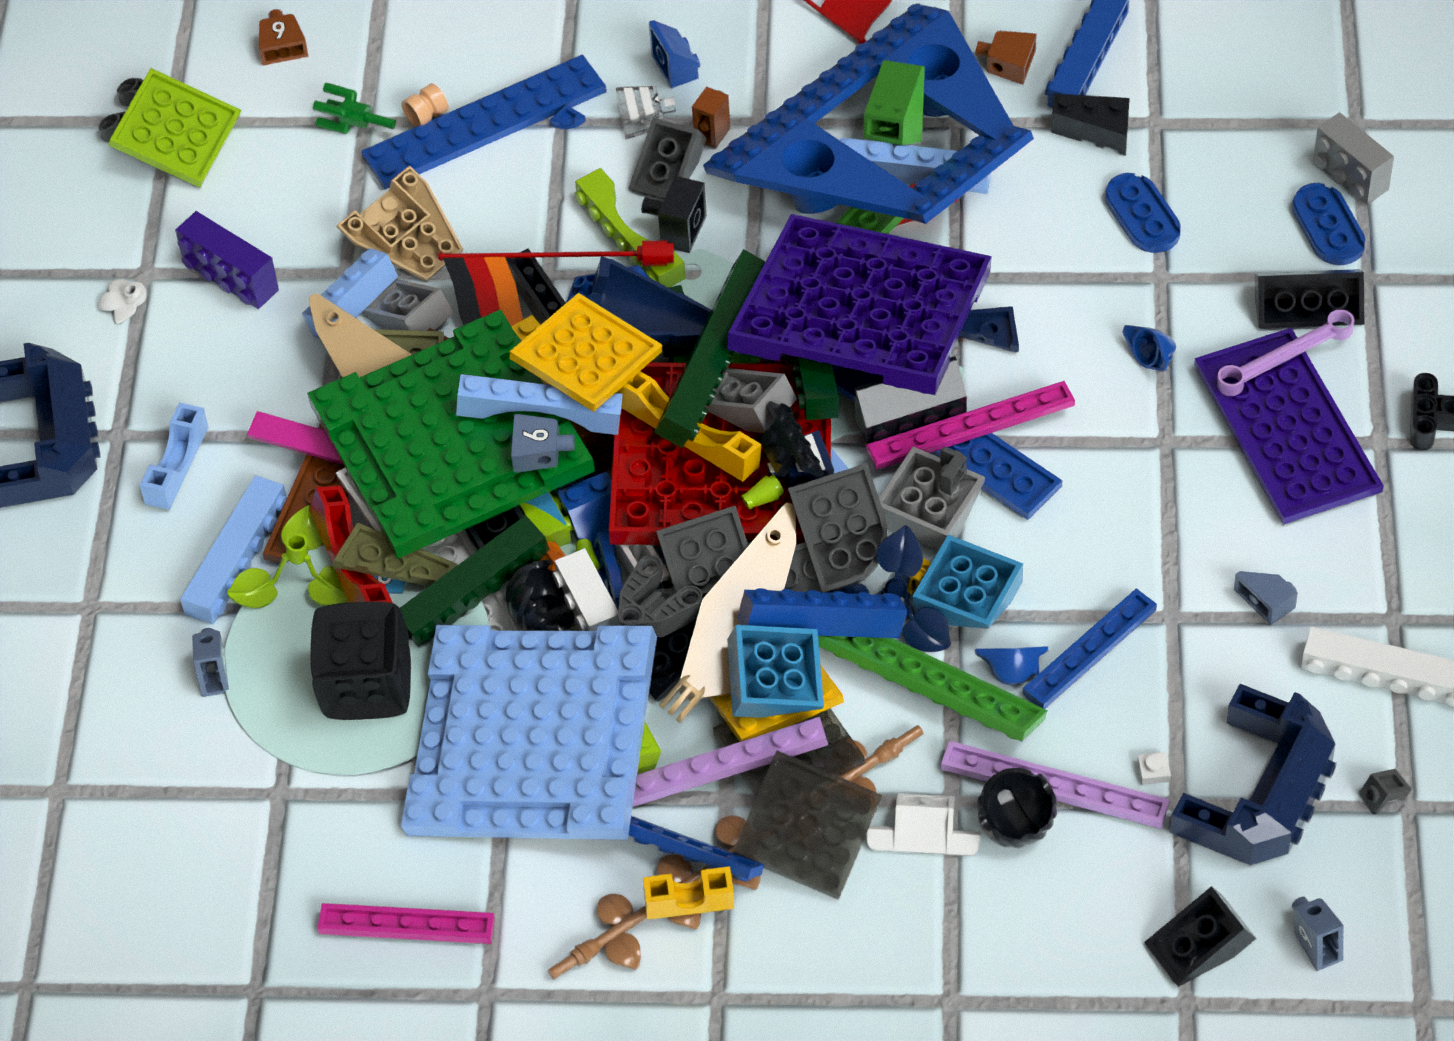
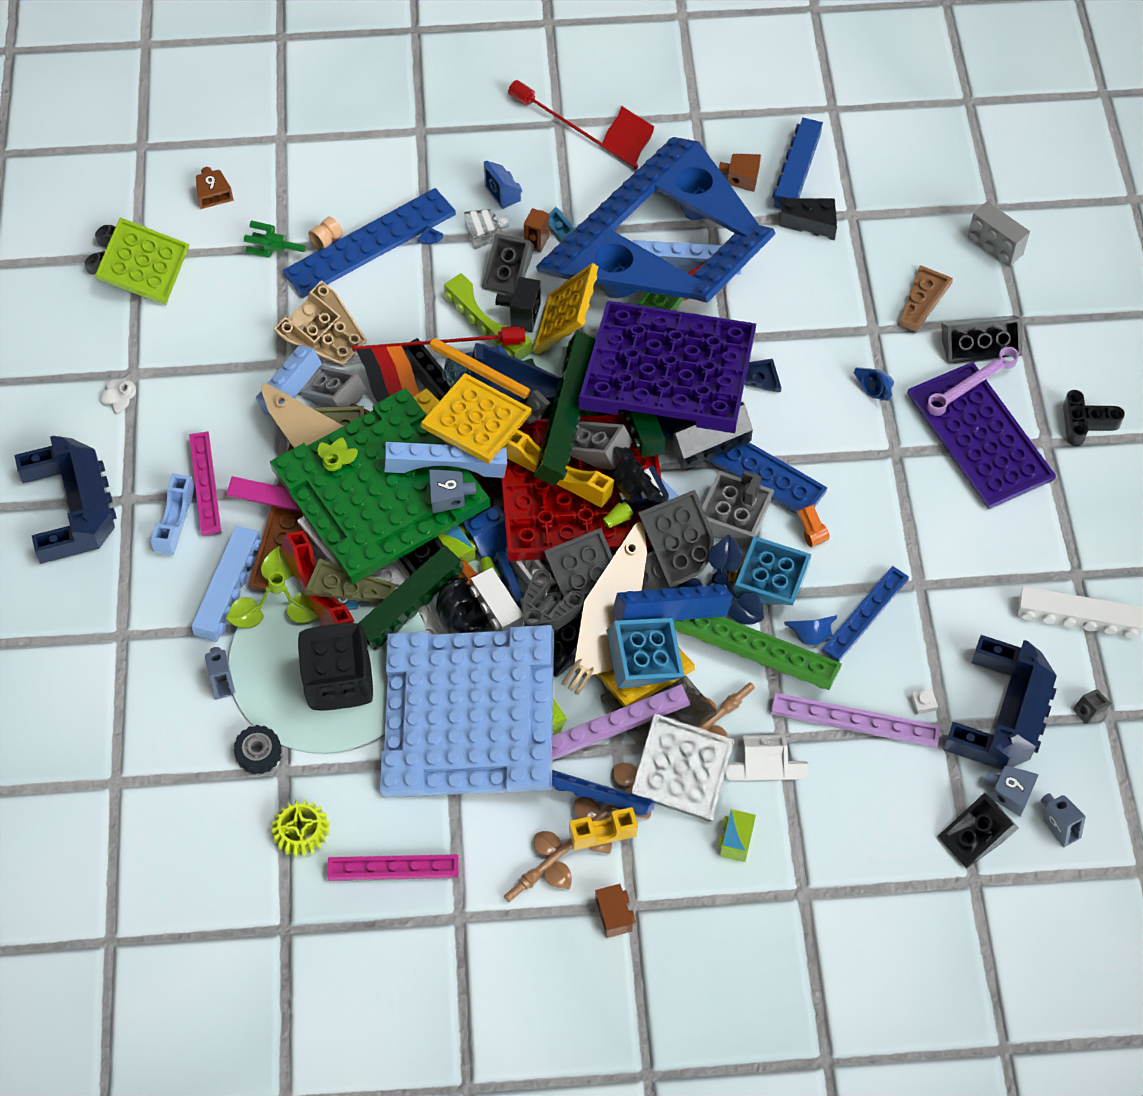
camera: 10 degrees left, 5 degrees up
(222, 420) = (205, 483): none -> dark pink plate
(227, 260) = (194, 360): dark purple brick -> none
(253, 776) = (257, 737): none -> black wheel
(305, 871) = (283, 828): none -> neon yellow gear
(396, 387) = (337, 453): none -> lime plate
(569, 286) = (452, 372): none -> clear light blue bracket
(602, 290) = (479, 368): none -> light orange axle
(673, 343) = (538, 404): none -> dark grey bracket
(691, 1000) = (614, 910): none -> dark orange brick
(734, 222) = (565, 309): none -> yellow plate
(745, 110) = (560, 224): none -> dark azure slope
(870, 919) = (737, 835): none -> lime brick
(896, 104) = (671, 213): bright green slope -> none
(971, 424) = (756, 450): dark pink tile -> none
(1016, 807) = (833, 742): black piece -> none
(1035, 536) = (815, 531): none -> orange piece
(1142, 213) = (853, 282): blue tile -> none
(1242, 232) = (926, 293): none -> medium nougat wing
(1256, 887) = (1012, 787): none -> sand blue torso
(1266, 594) = (985, 562): sand blue slope -> none
(1328, 224) = (985, 282): blue tile -> none

